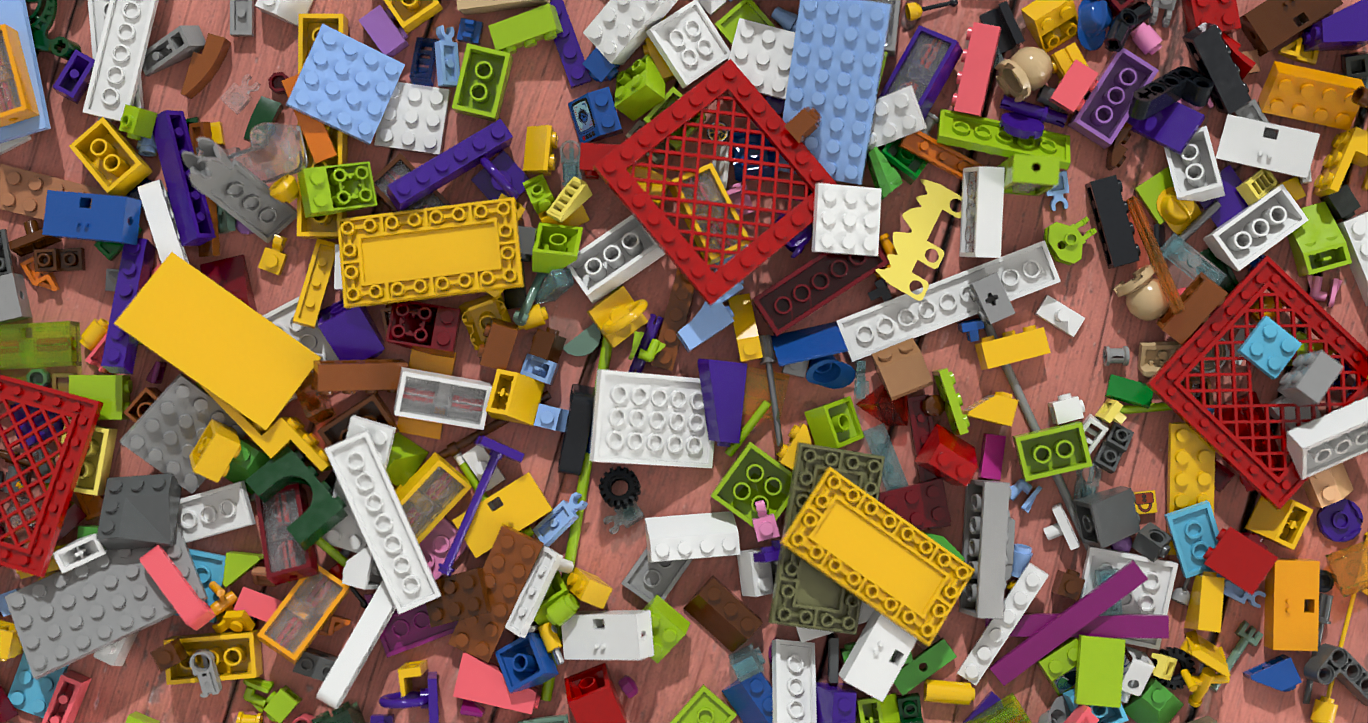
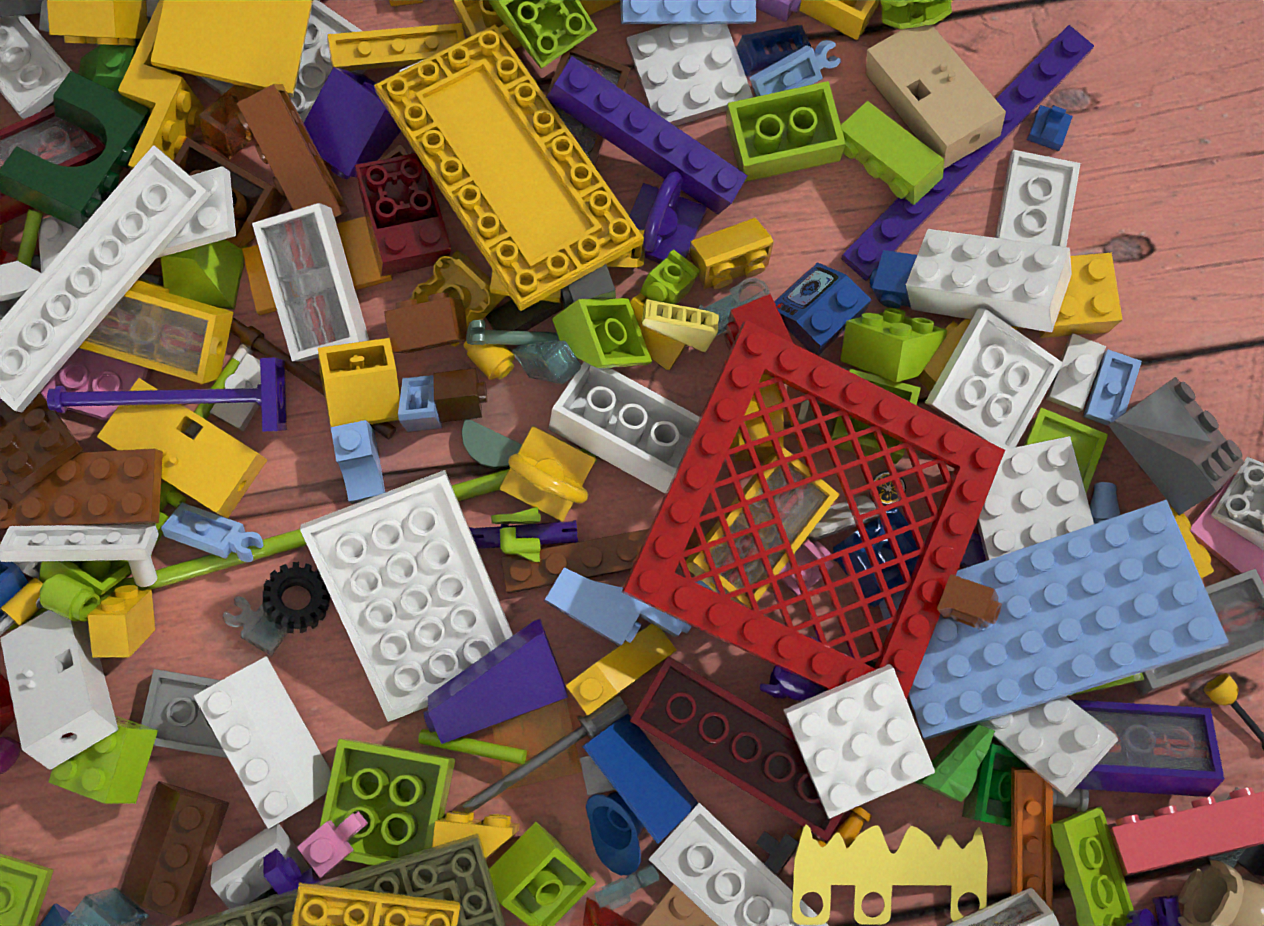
camera: 70 degrees right, 10 degrees down
(470, 31) = (847, 87): blue tile -> none
(577, 429) = (348, 490): black beam -> none

